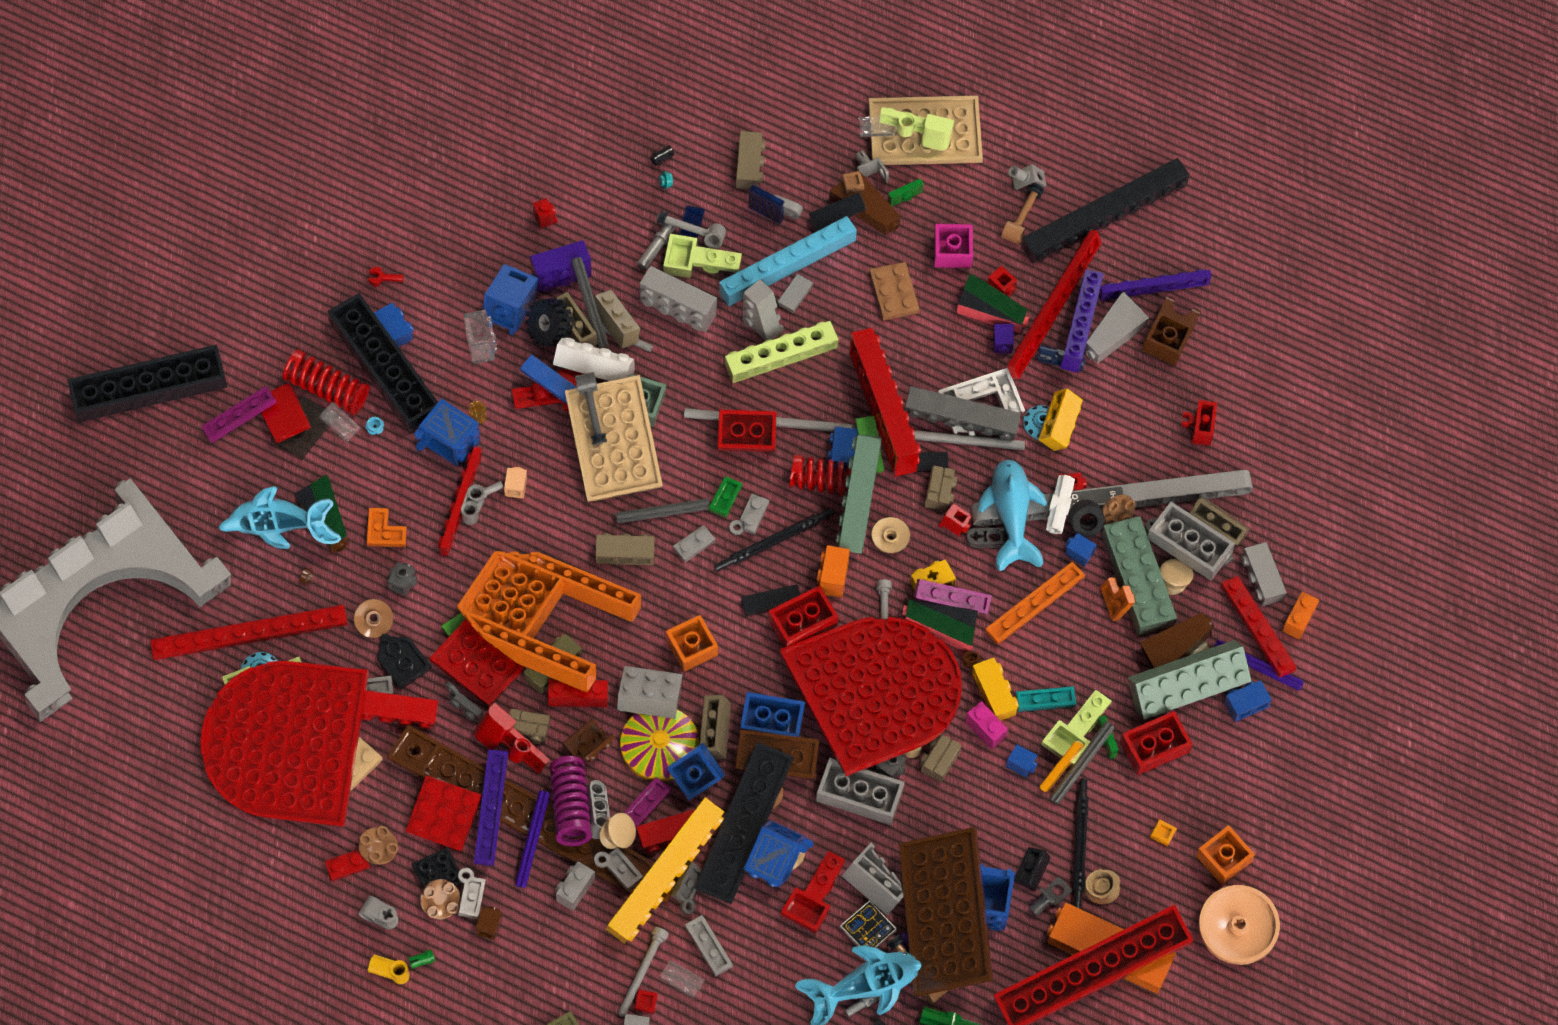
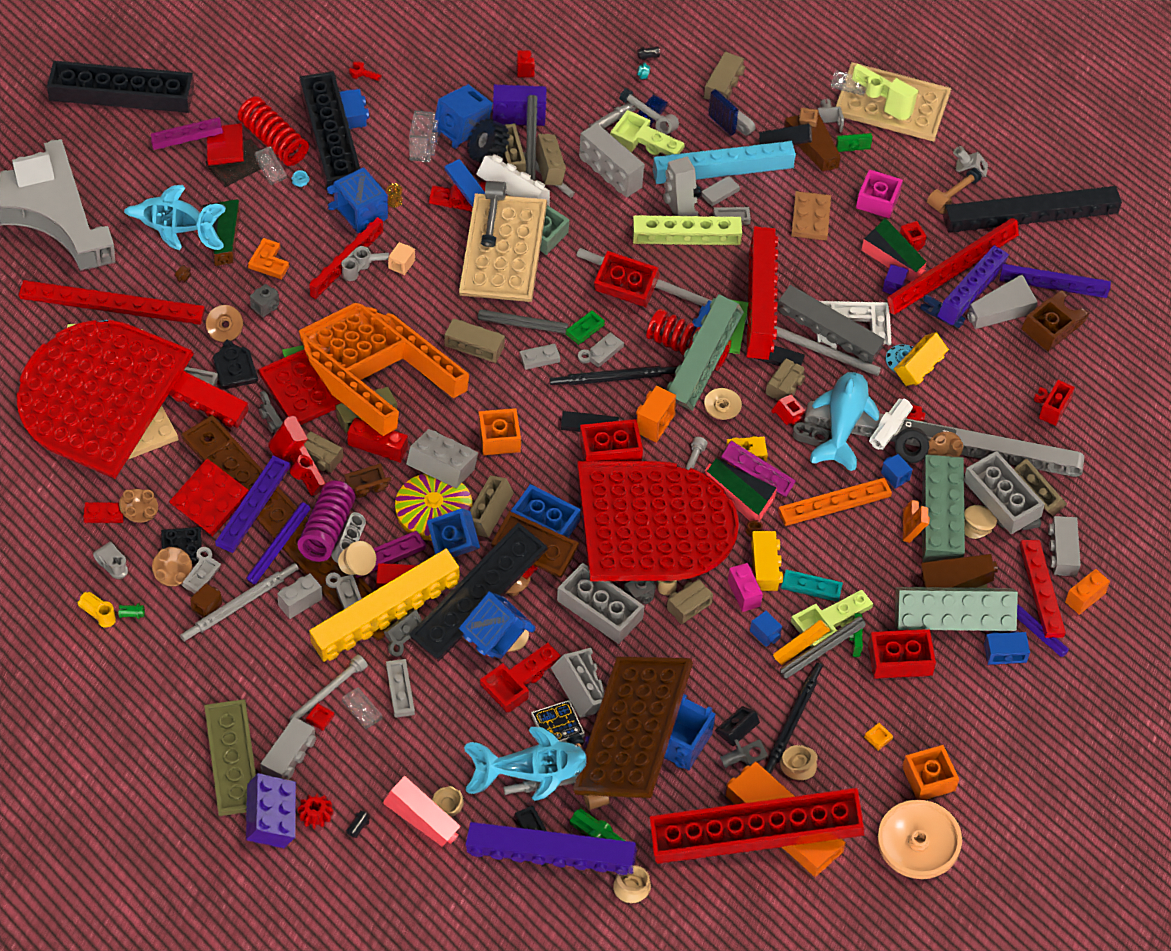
camera: 20 degrees right, 10 degrees down
(519, 912) = (240, 601): none -> light grey axle
(821, 314) = (742, 212): none -> light grey tile

